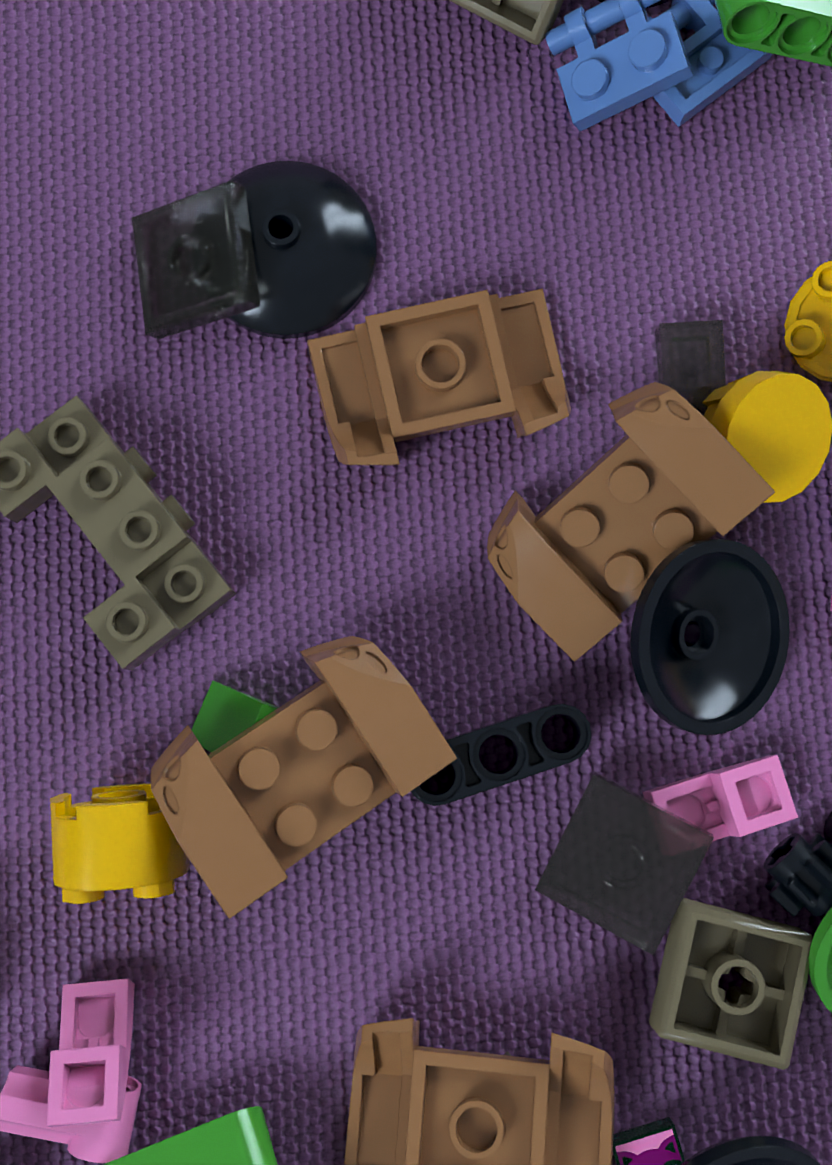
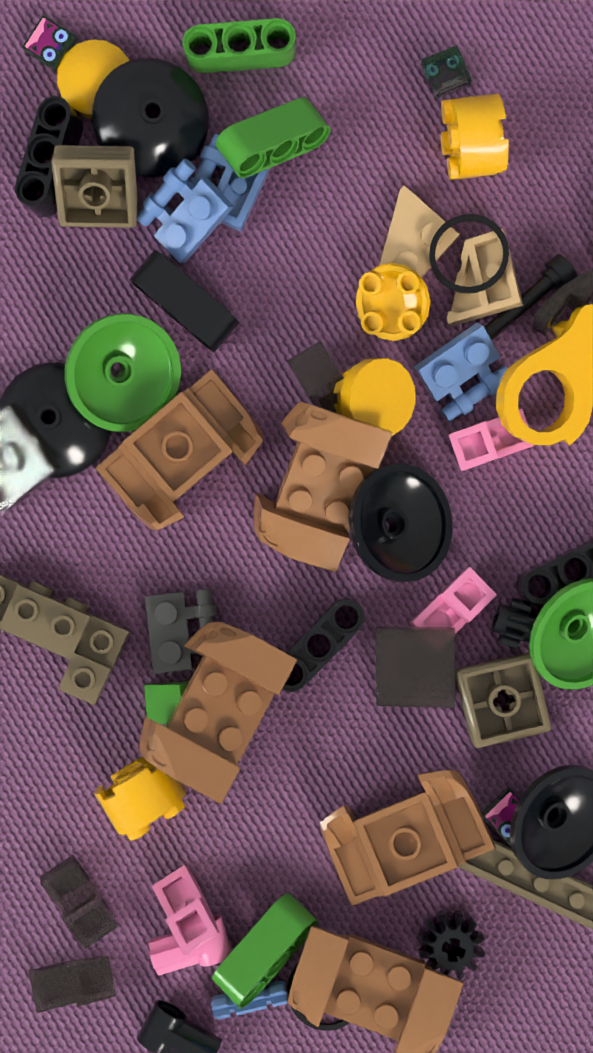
camera: 25 degrees left, 5 degrees up
(293, 617) = (170, 628): none -> dark grey plate
(458, 209) = (146, 378): none -> bright green dish
(554, 175) = (184, 301): none -> black beam

